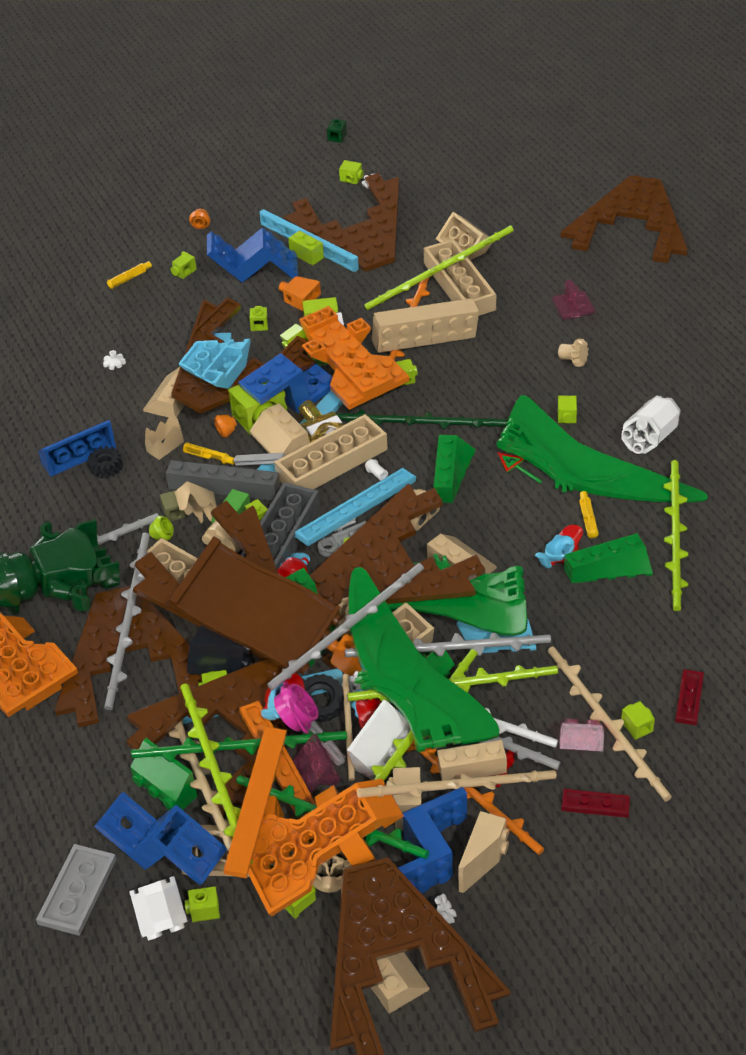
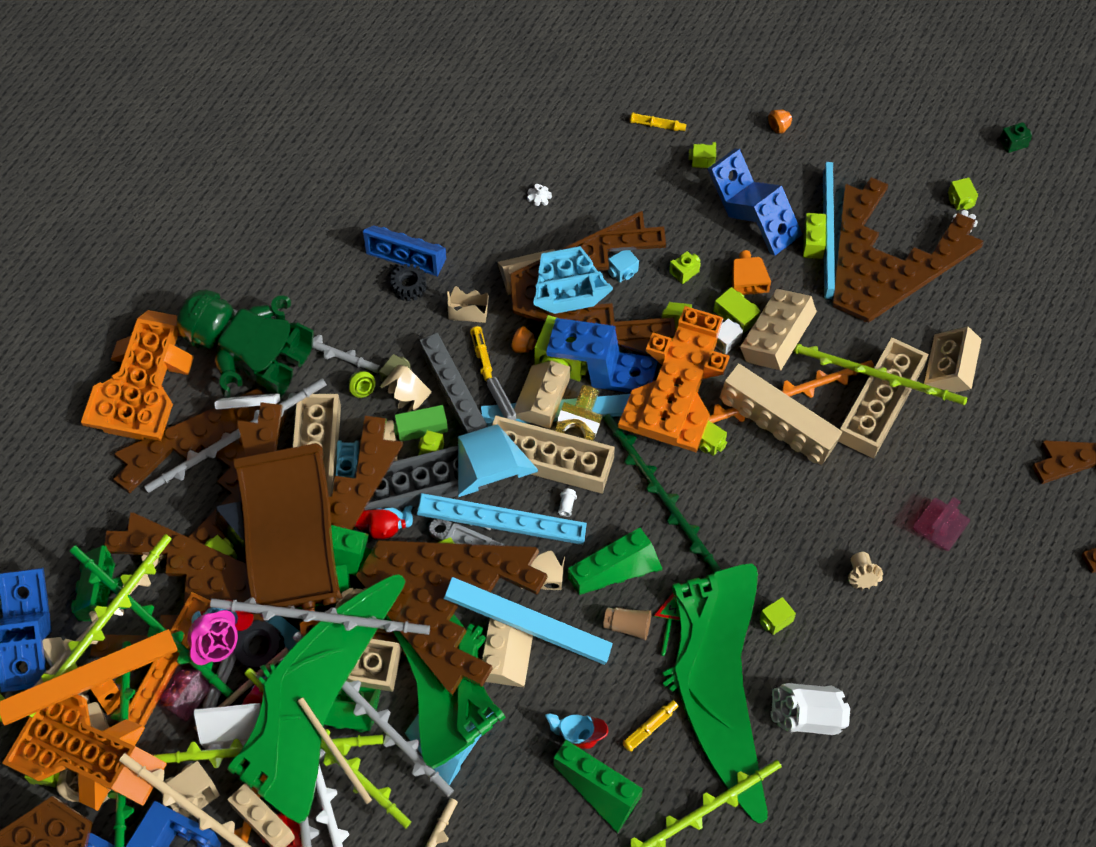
camera: 50 degrees right, 15 degrees up
(106, 596) = (246, 401): none -> white tile
(307, 479) = (489, 457): none -> medium azure wedge
(357, 294) = (778, 329): none -> tan brick
(453, 527) = (528, 620): none -> medium azure tile
(467, 674) = (334, 750): none -> tan axle
(503, 481) = (628, 621): none -> medium nougat plant

